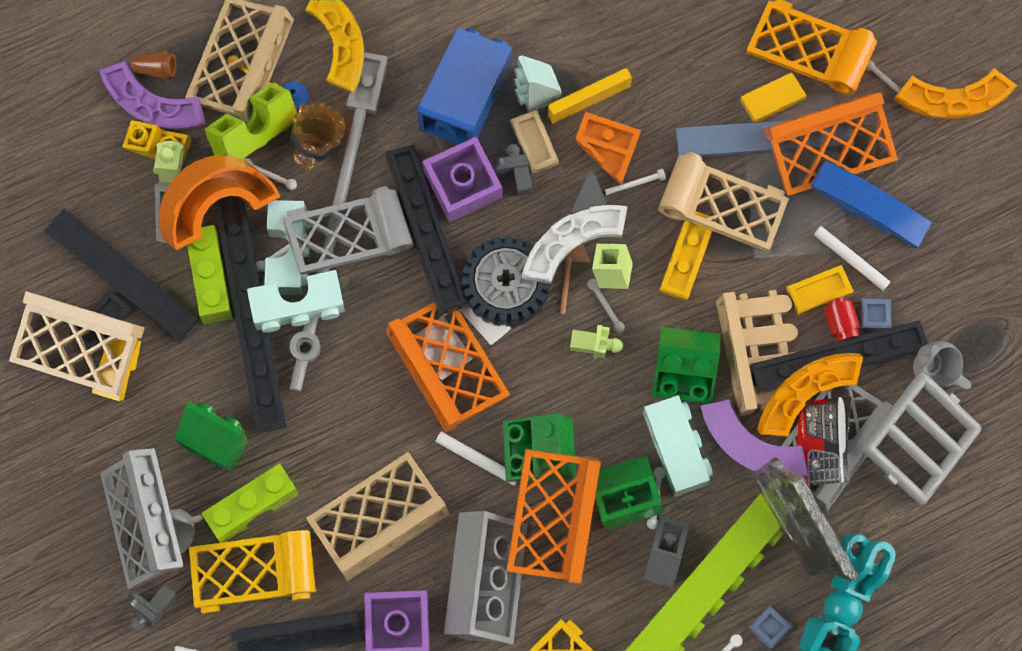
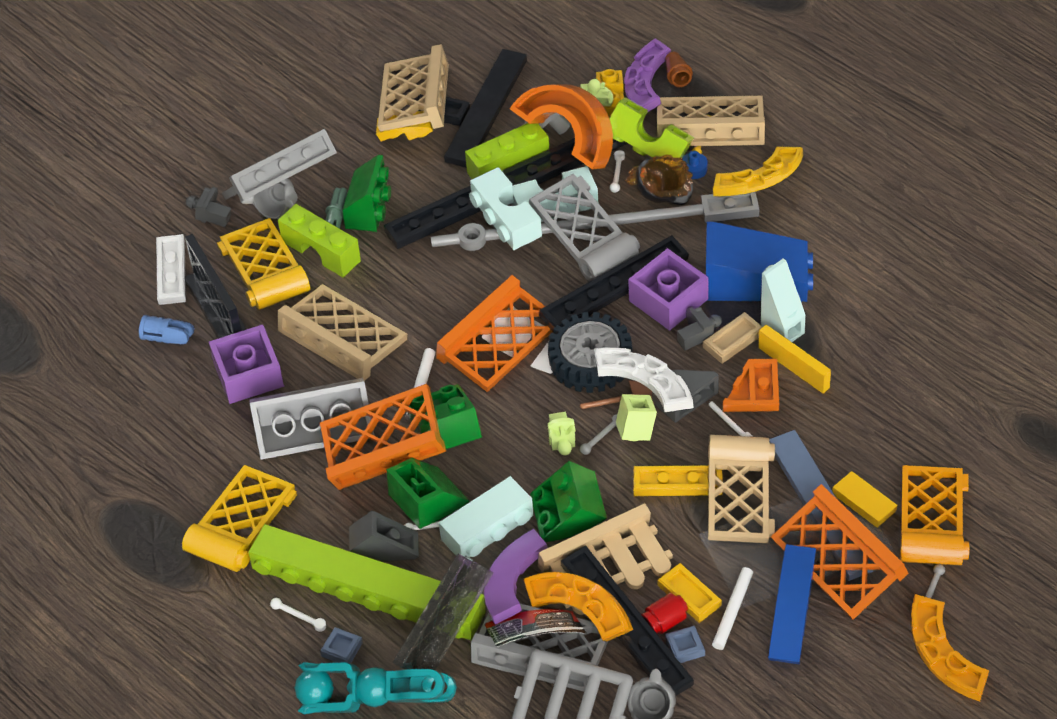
camera: 75 degrees right, 25 degrees down
(211, 475) = (334, 210): none -> sand green axle

